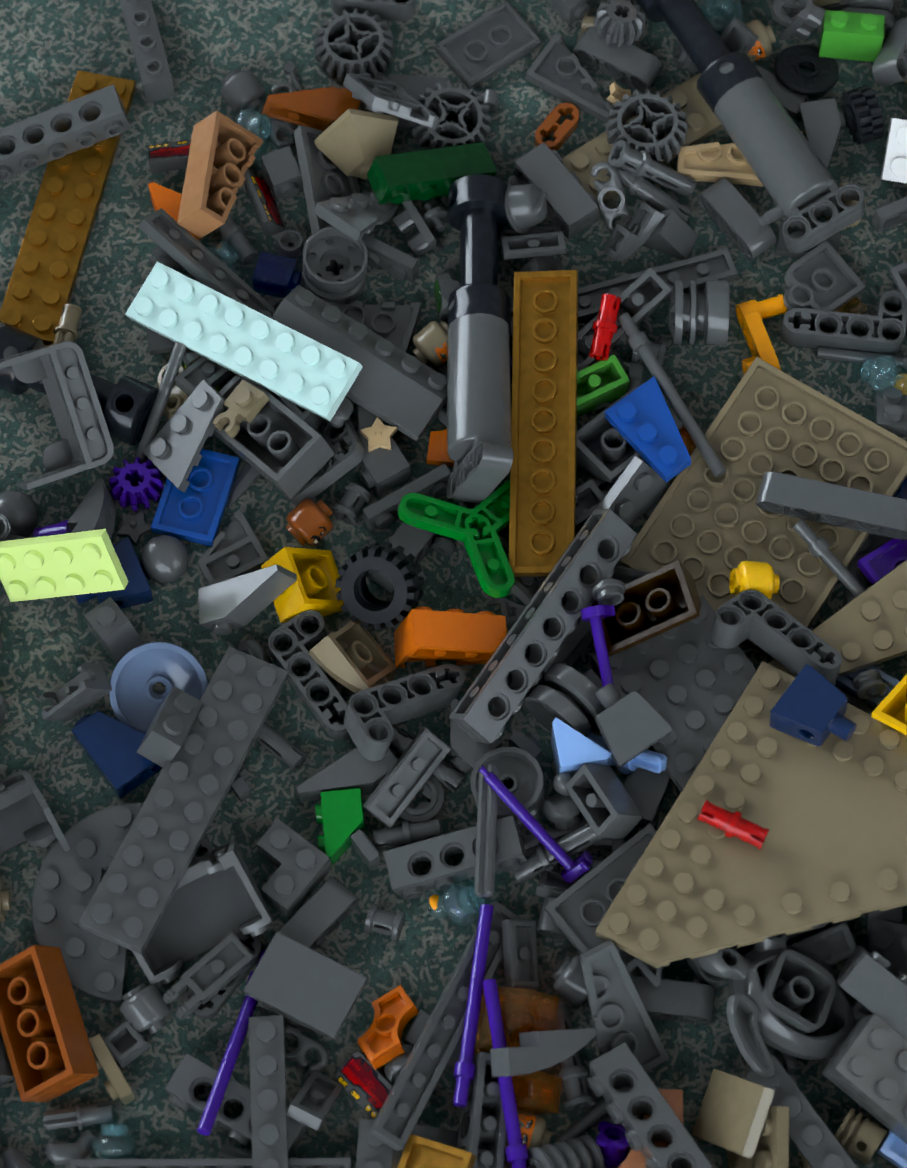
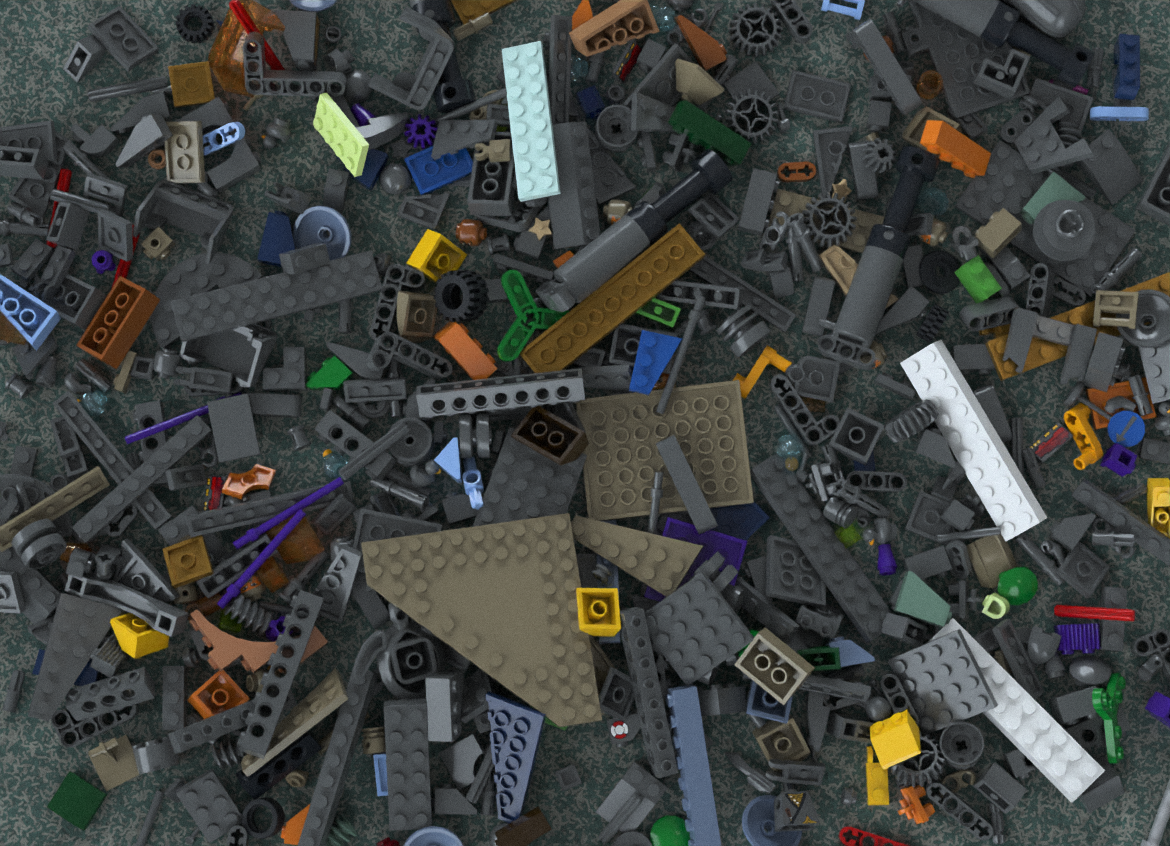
camera: 45 degrees right, 15 degrees up
(240, 599) = (398, 234): dark grey slope -> none
(388, 97) = (730, 75): dark grey wing -> none
(524, 205) = (731, 193): dark grey piece -> none
(539, 1051) = (287, 562): dark grey slope -> none
(572, 868) = (394, 505): dark purple piece -> none
(594, 615) = (523, 414): dark purple piece -> none
(603, 801) = (435, 494): dark grey brick -> none
(604, 327) = (687, 292): red pin -> none
(609, 592) = (541, 411): dark grey plate -> none
(628, 724) = (480, 475): dark grey torso -> none
(733, 824) = (463, 566): red pin -> none
(733, 1113) = (331, 674): dark tan tile -> none
(754, 576) = (612, 475): yellow head -> none
(774, 631) = (585, 514): dark grey beam -> none
(812, 709) = (555, 558): dark blue torso -> none

